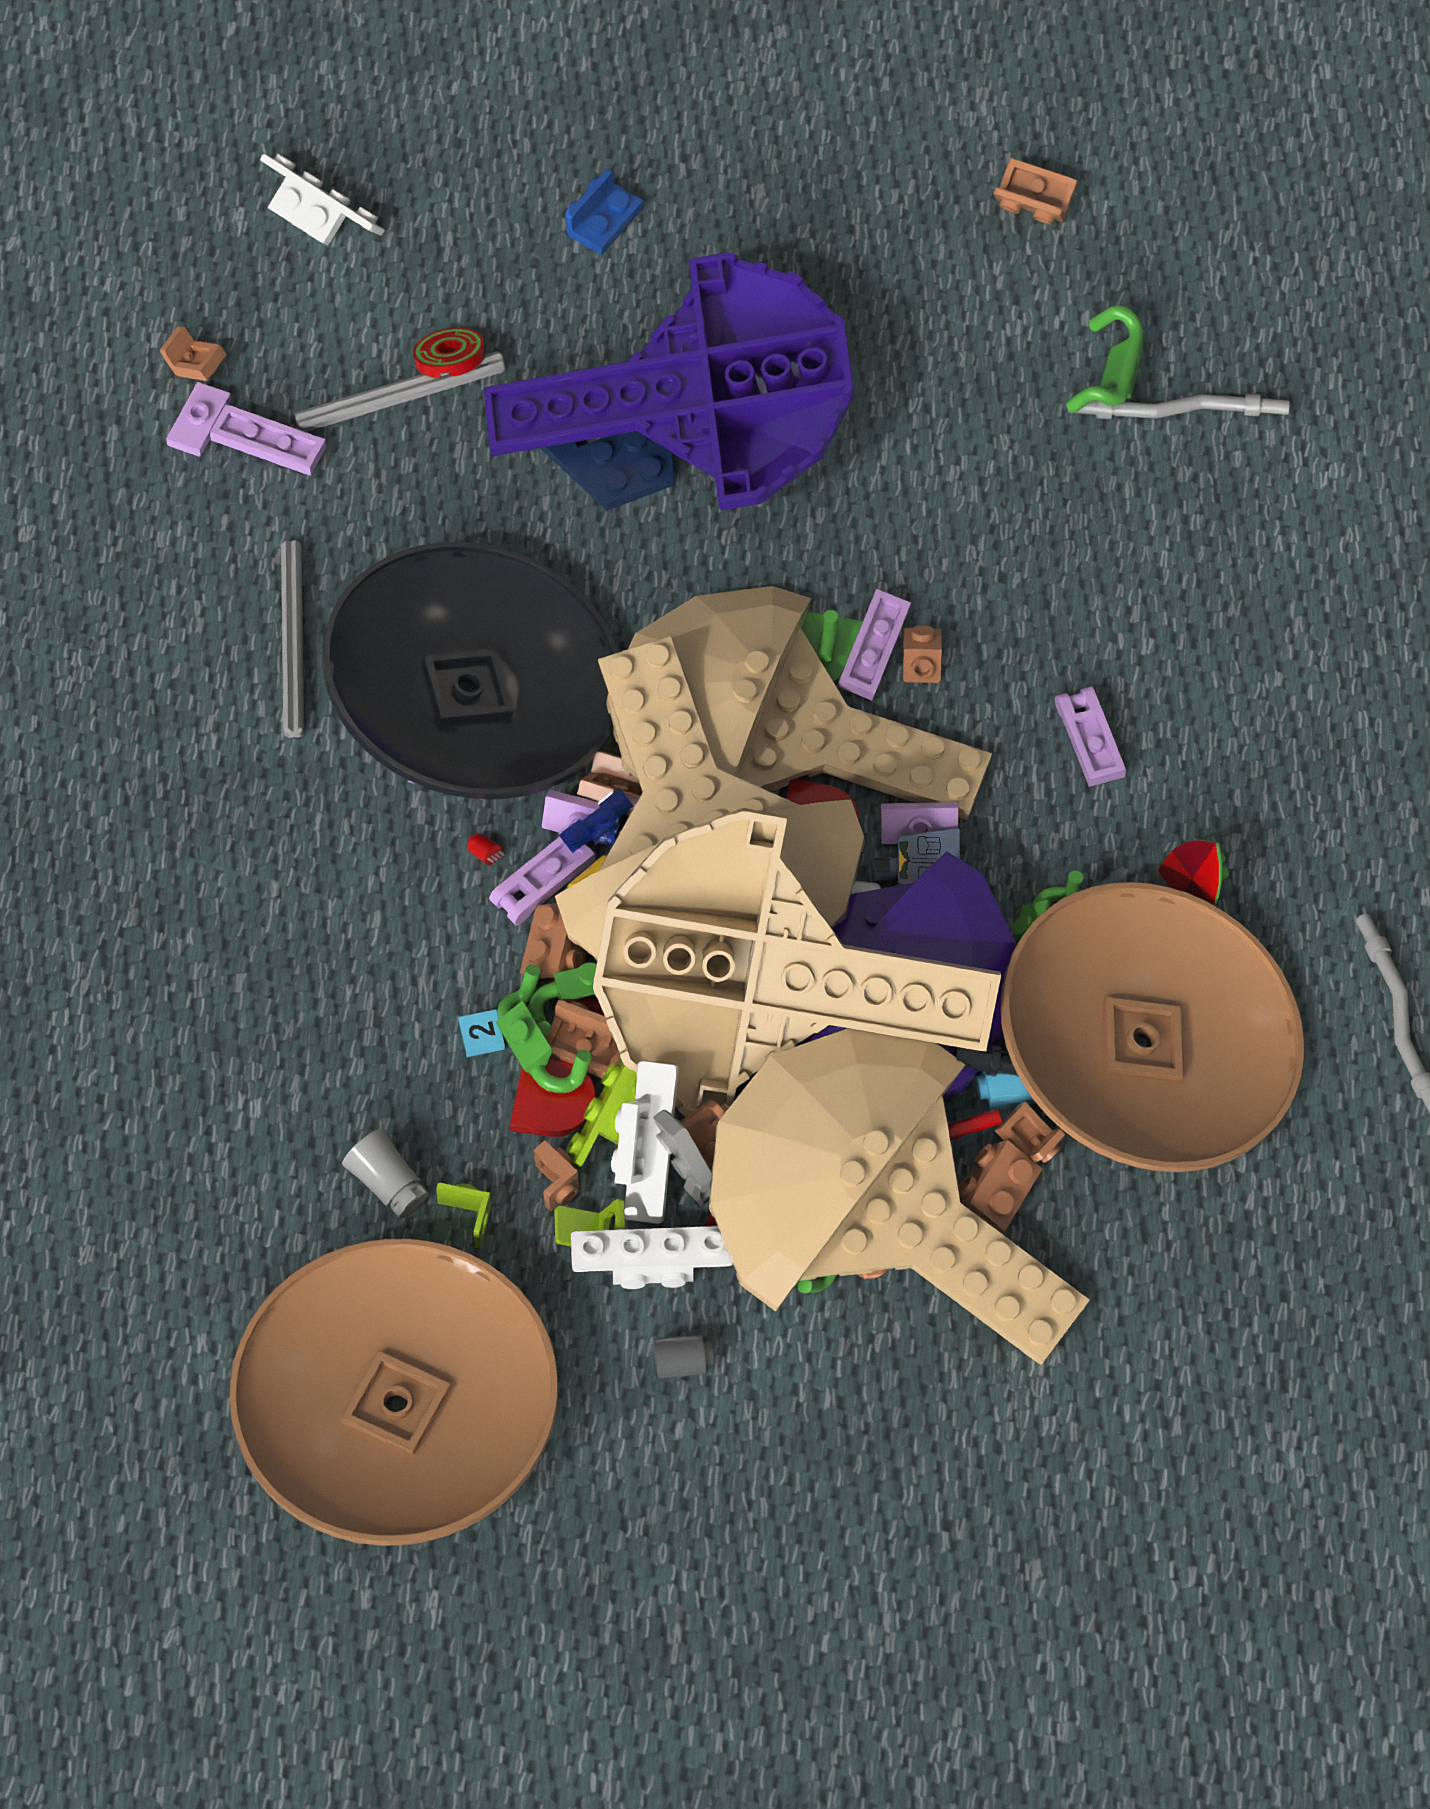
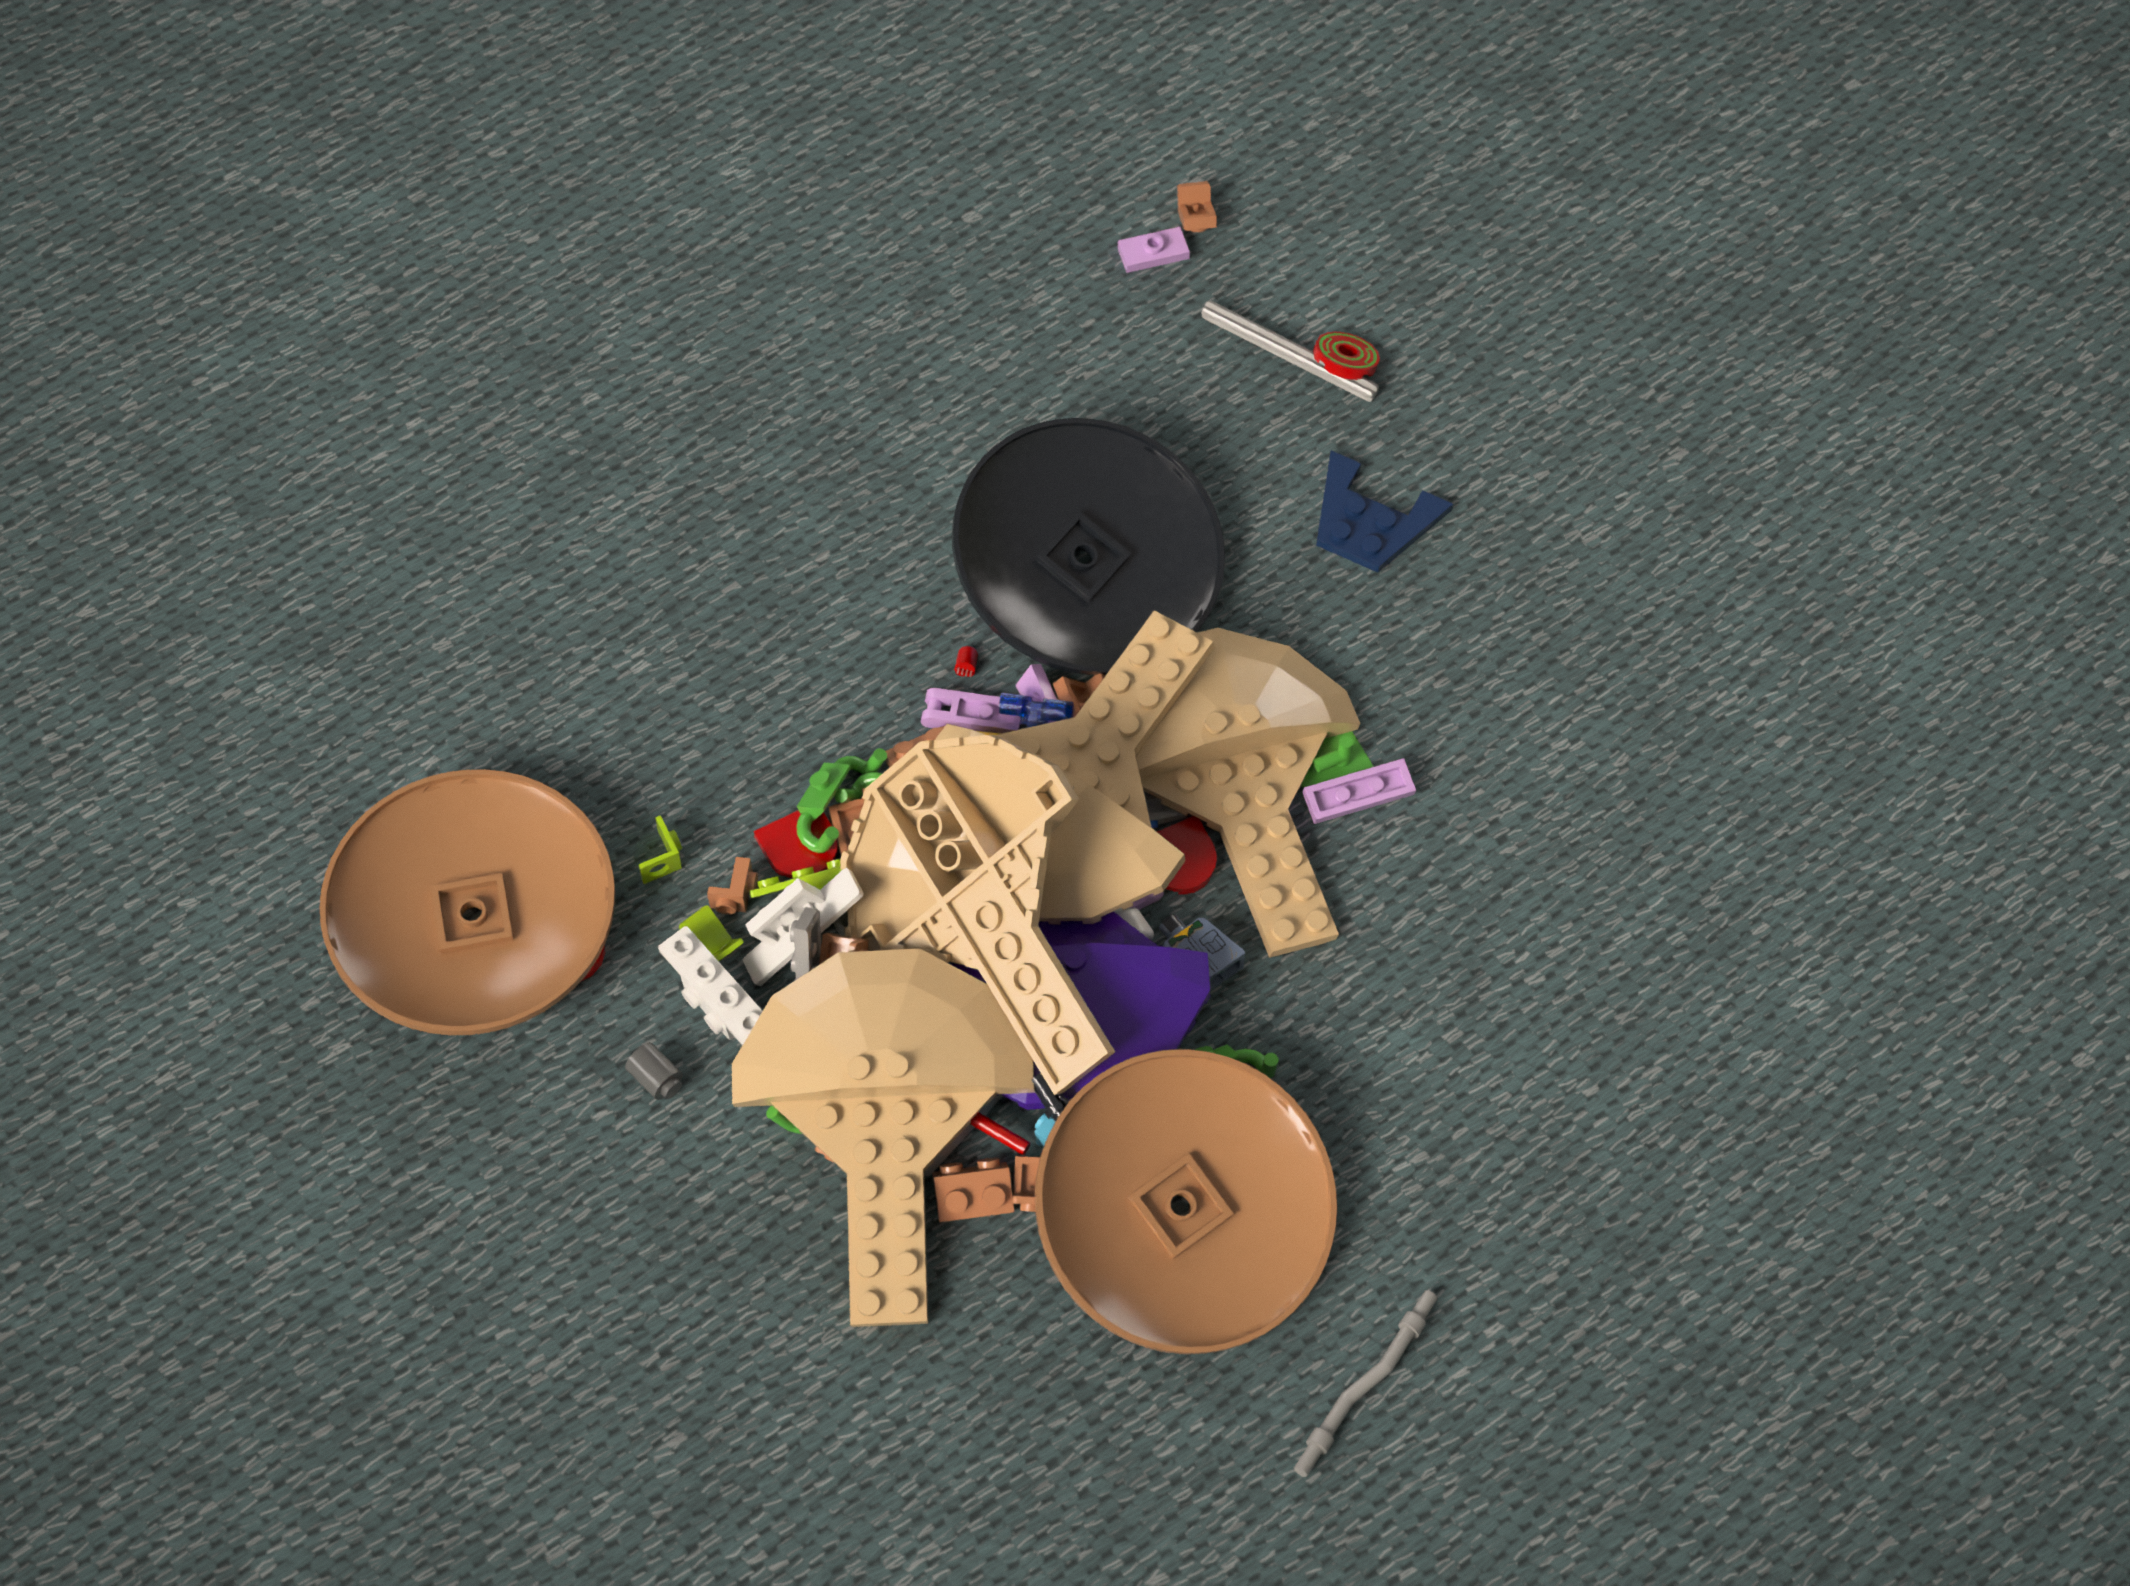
camera: 50 degrees right, 0 degrees up
(268, 439) = (1173, 300): lavender plate -> none
(292, 639) = (1048, 411): light grey axle -> none
(312, 208) = (1389, 192): white bracket -> none
(386, 1173) = (646, 779): light grey plant -> none
(481, 1033) = (811, 759): medium azure tile -> none
(601, 213) = (1558, 367): blue bracket -> none
(732, 382) = (1466, 543): dark purple plate -> none
(916, 818) = (1234, 922): lavender plate -> none
(922, 654) = (1380, 827): nougat bracket -> none
(1036, 191) = (1855, 627): nougat bracket -> none
(1090, 736) = (1414, 992): lavender plate -> none
(1121, 365) = (1757, 792): bright green piece -> none
(1196, 869) = (1357, 1145): shield -> none
(1250, 405) = (1813, 902): light grey bar -> none

